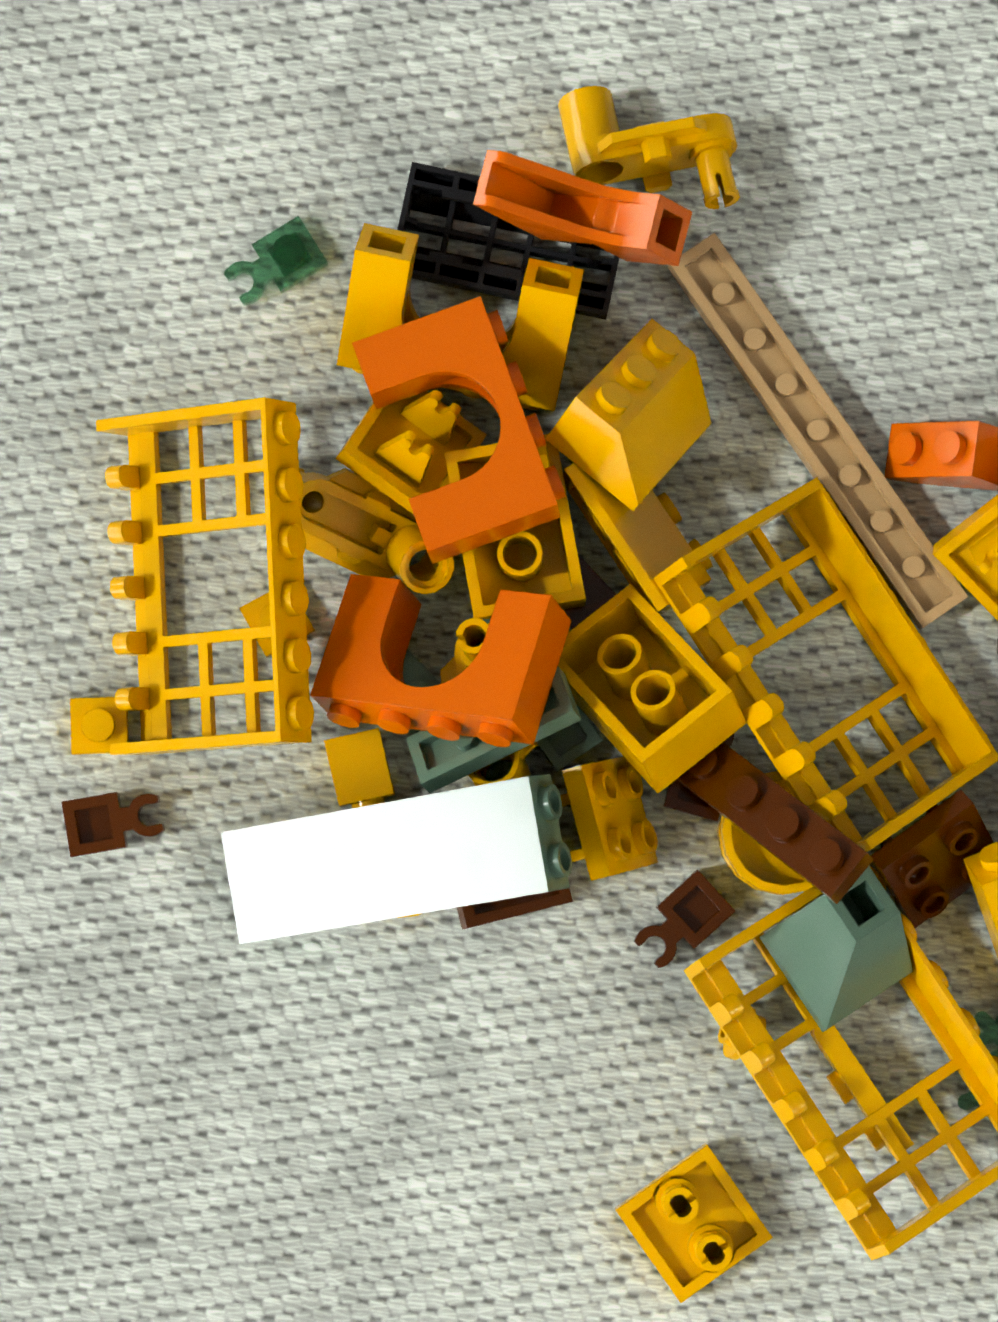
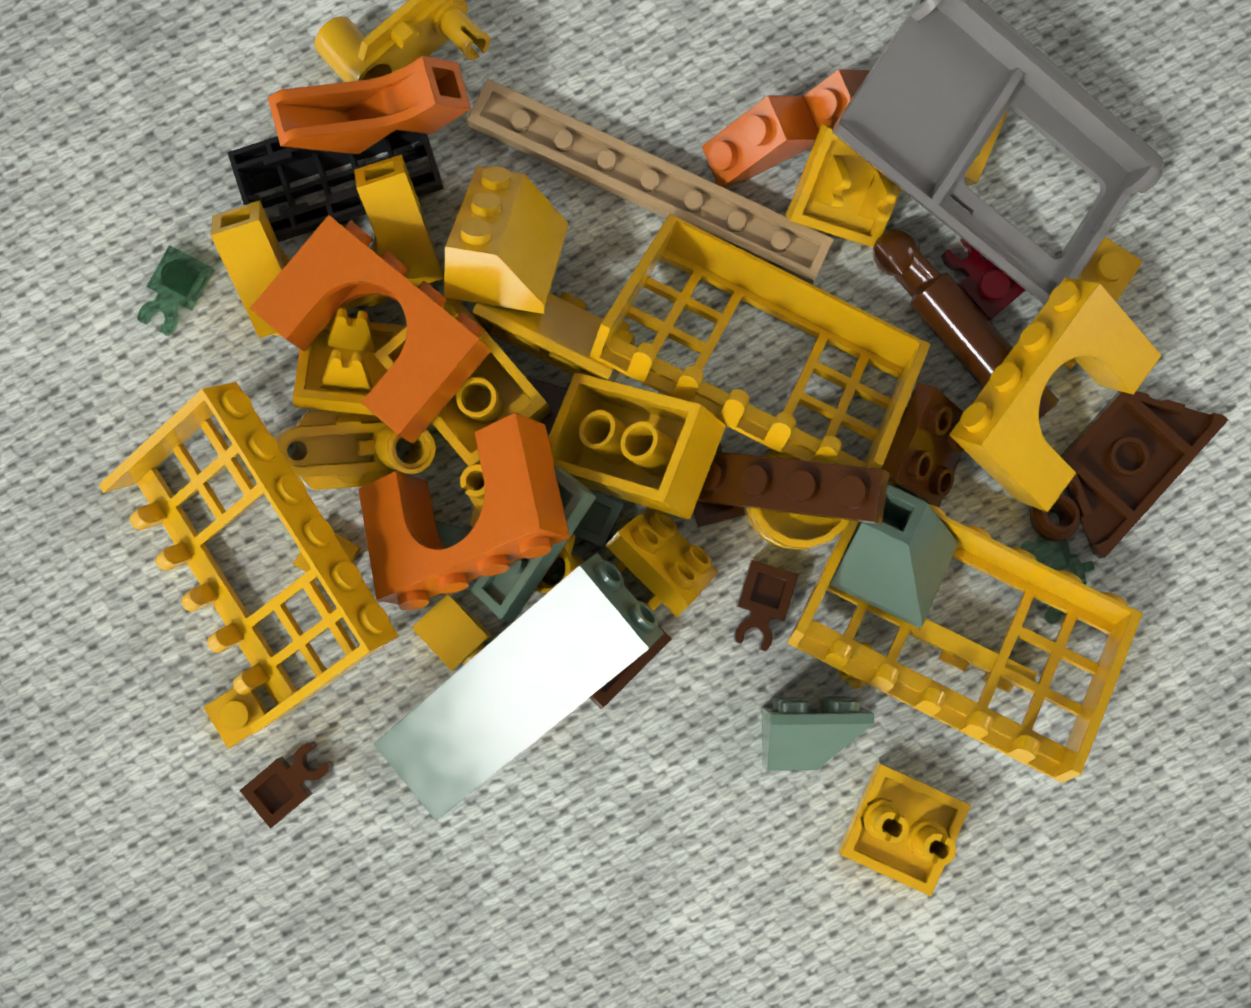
camera: 25 degrees left, 0 degrees up
(651, 1075) = (805, 740): none -> sand green slope

